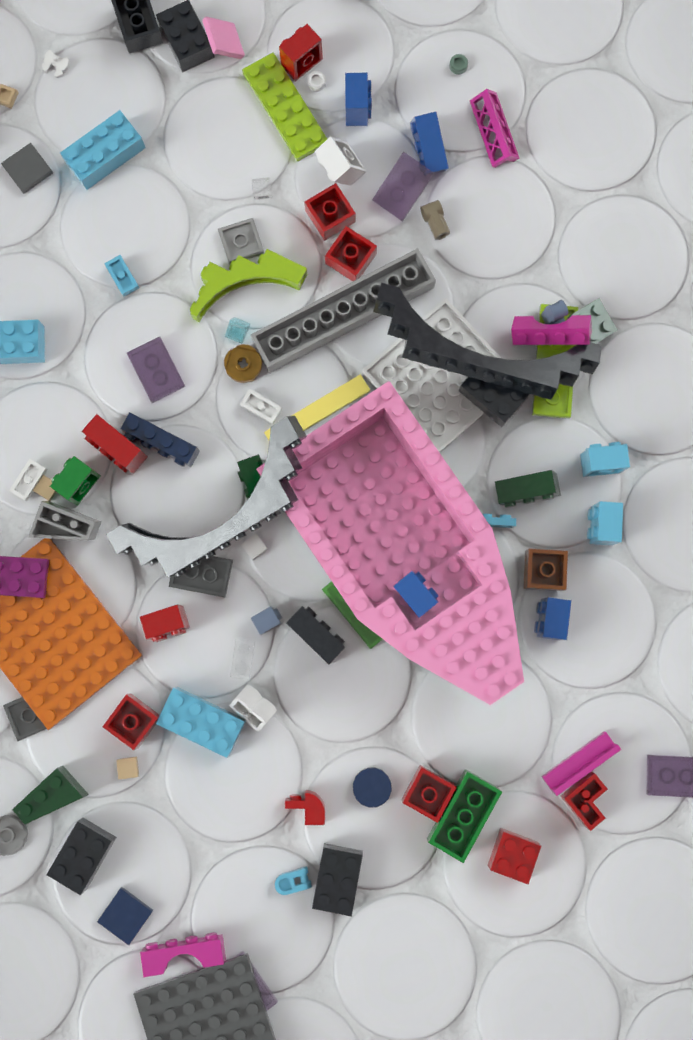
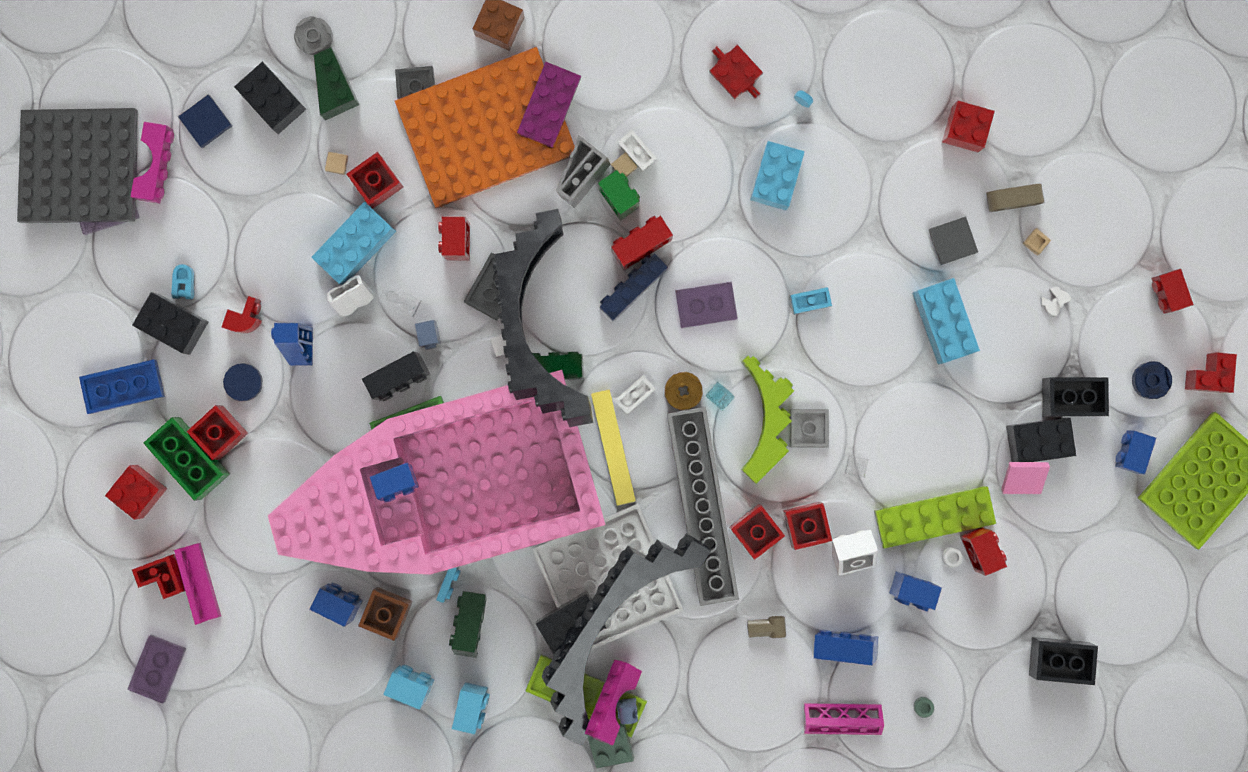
camera: 110 degrees right, 5 degrees up
(316, 745) = (294, 343): none -> blue wedge
(403, 186) = (810, 606): clear purple tile -> none
(416, 908) = (121, 386): none -> blue plate

